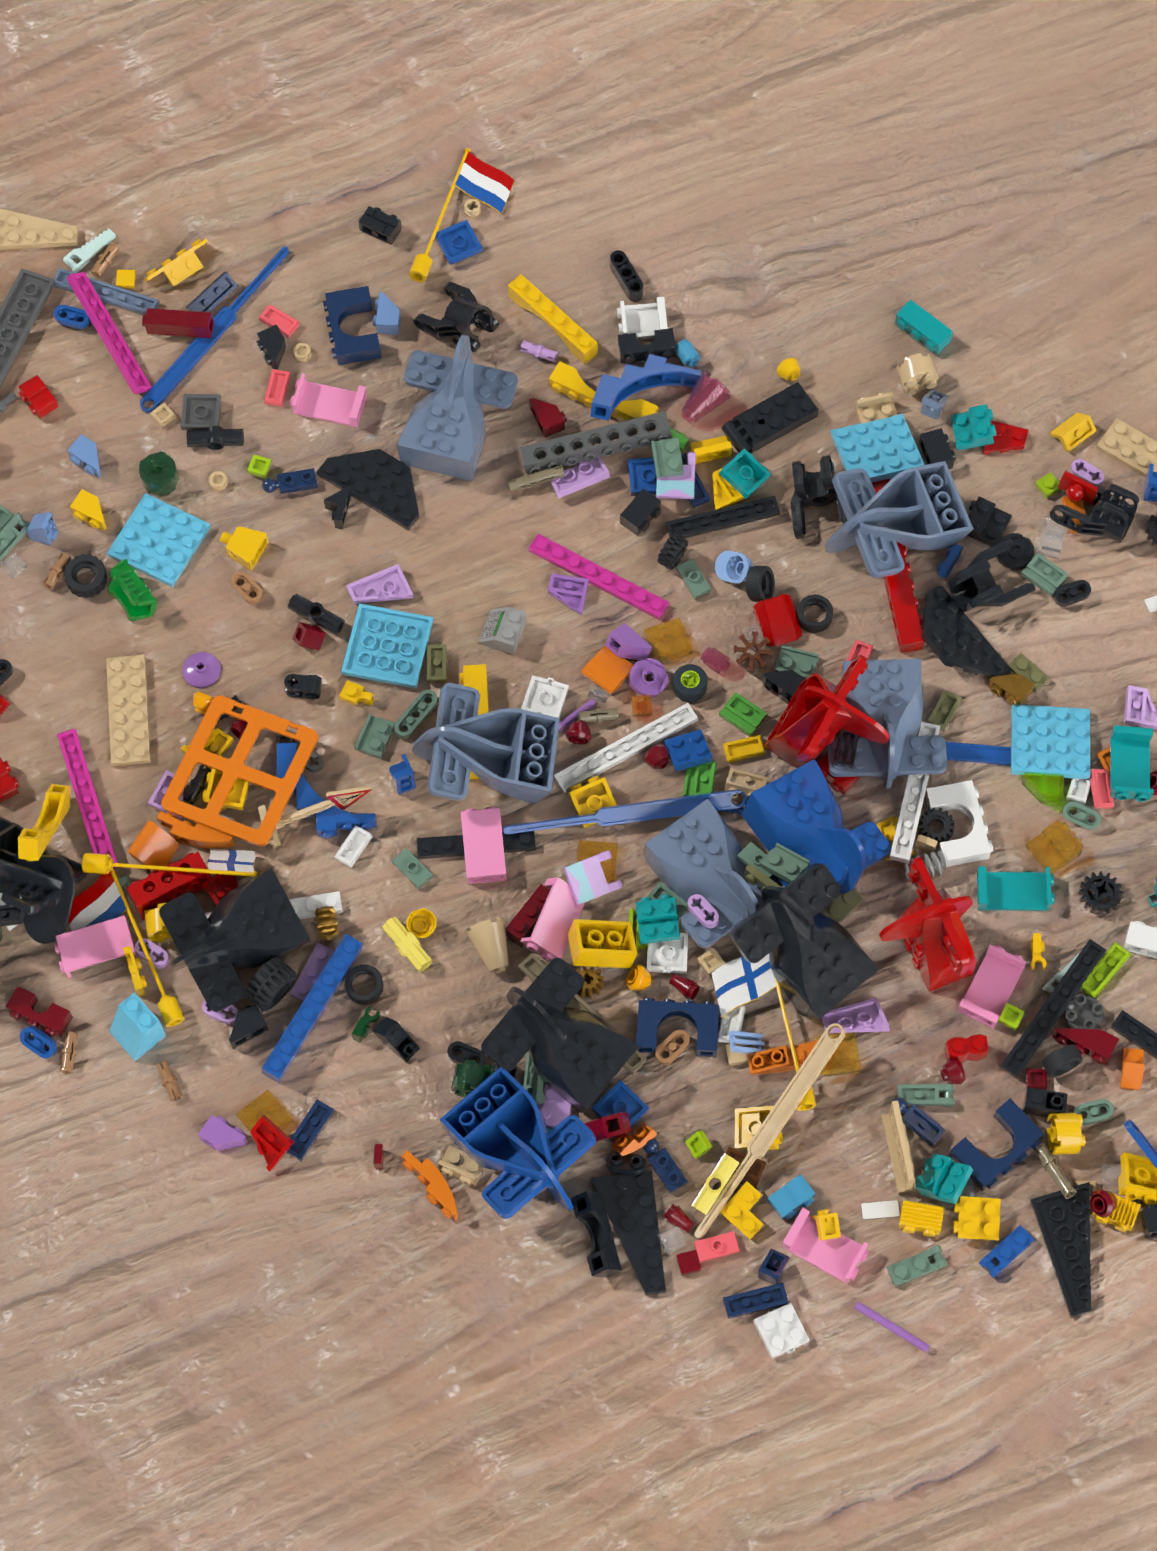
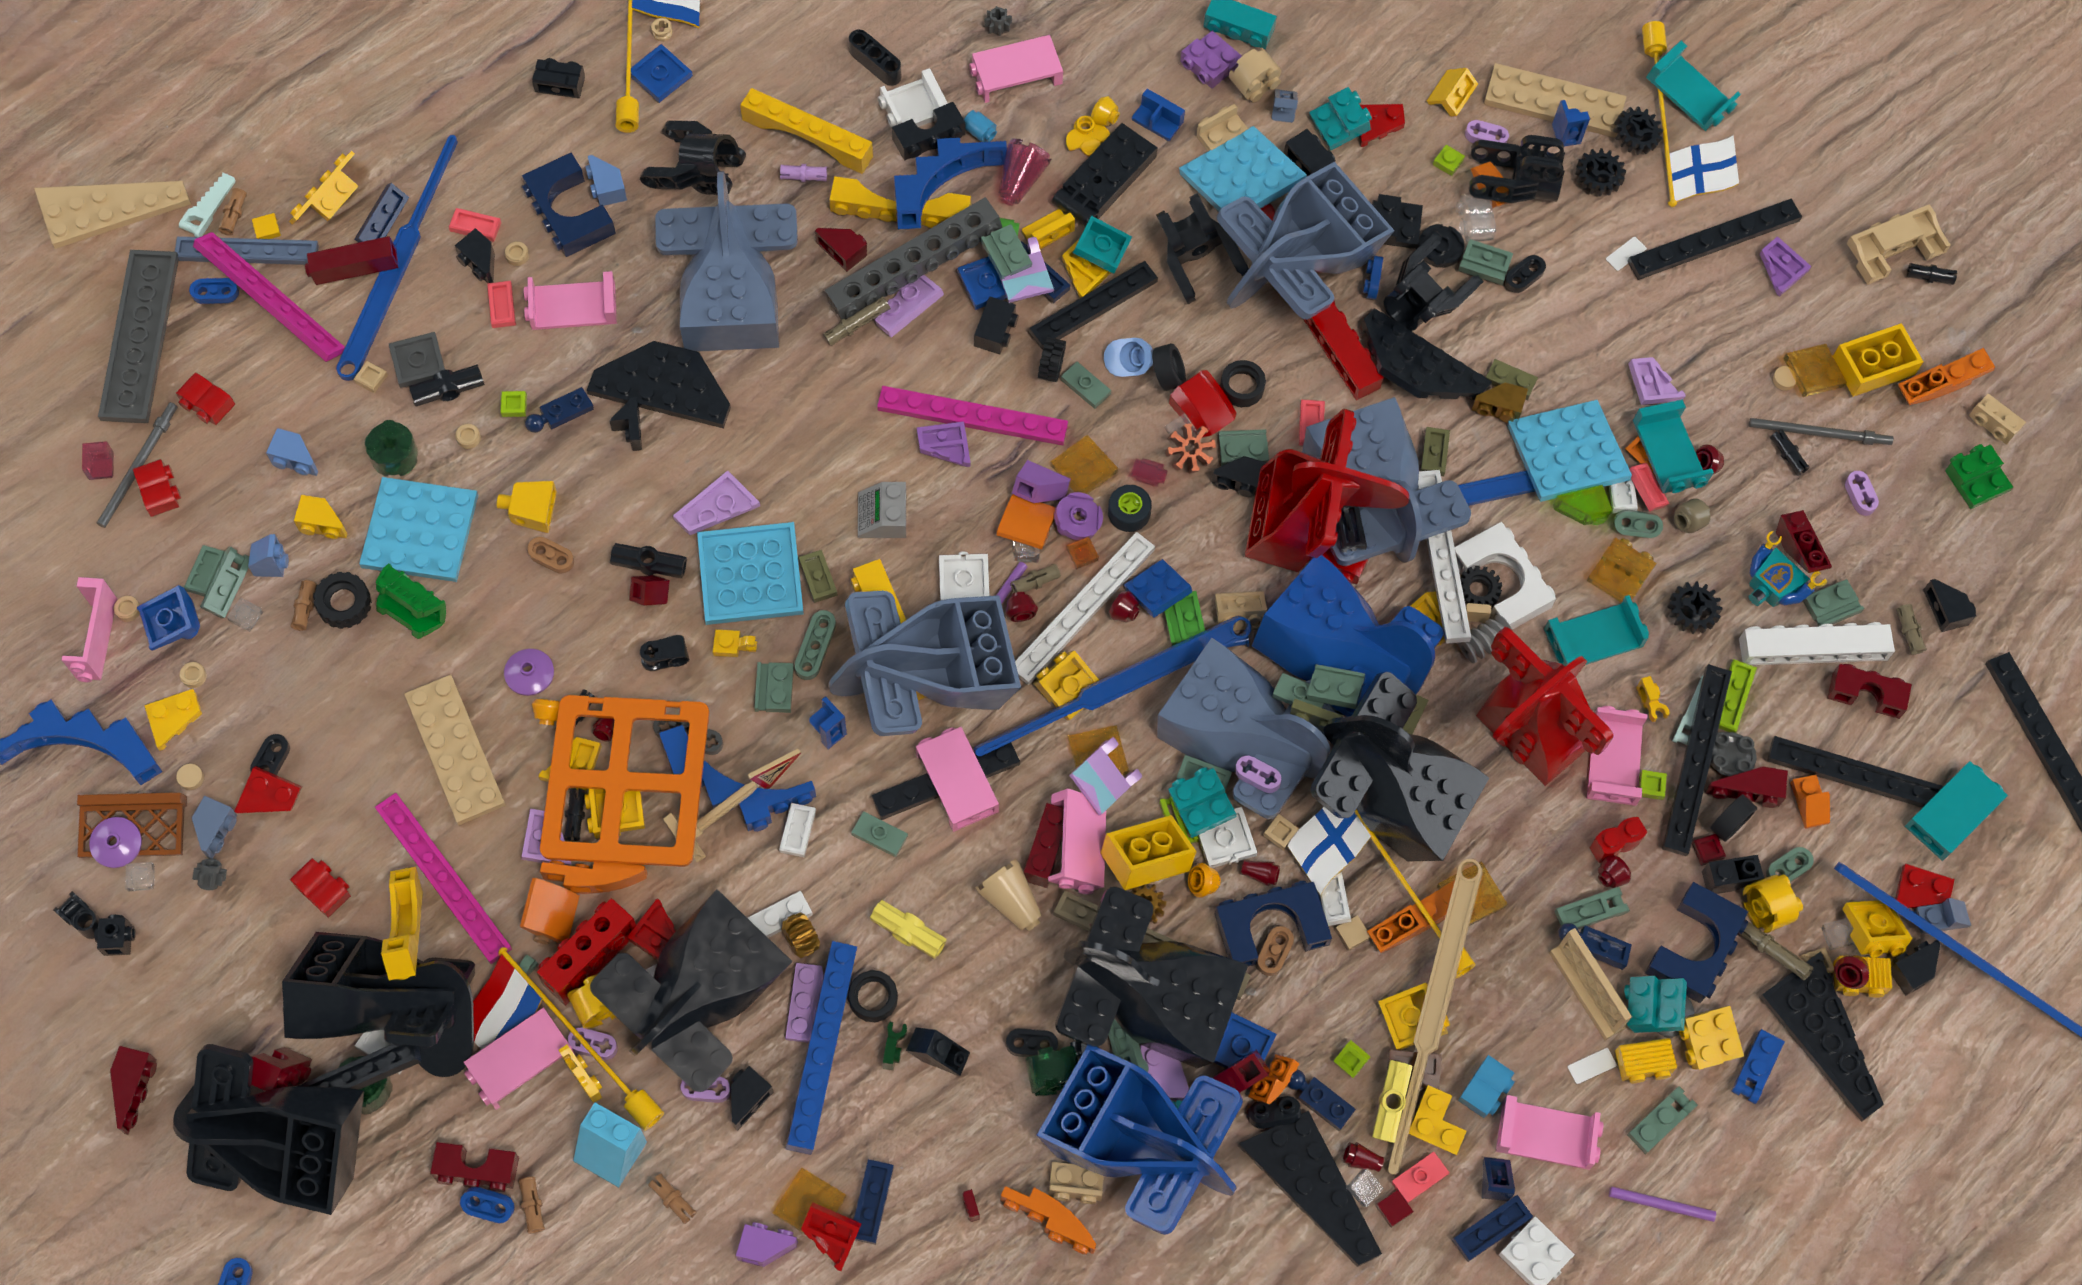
camera: 25 degrees left, 0 degrees up
(219, 862) = (642, 902): flag -> none
(270, 984) = (760, 1034): black tyre -> none
(421, 923) = (917, 897): yellow hair -> none
(591, 1212) = (1291, 1234): black arch -> none
(732, 313) = (1015, 65): none -> bright pink panel
(733, 273) = (998, 21): none -> dark grey gear
(733, 1035) = (1372, 912): light blue tile -> none
(743, 714) = (1205, 526): bright green plate -> none
(743, 749) = (1220, 566): yellow tile -> none
(766, 386) = (1086, 139): none -> yellow plate
(827, 1224) = (1541, 1105): yellow bracket -> none
(831, 384) = (1159, 115): none -> blue panel
(857, 1017) = (1481, 842): lavender wing -> none
(888, 350) = (1210, 59): none -> medium lavender plate
(1077, 488) = (1487, 152): red tile -> none
(1127, 821) = (1692, 516): none -> dark tan head

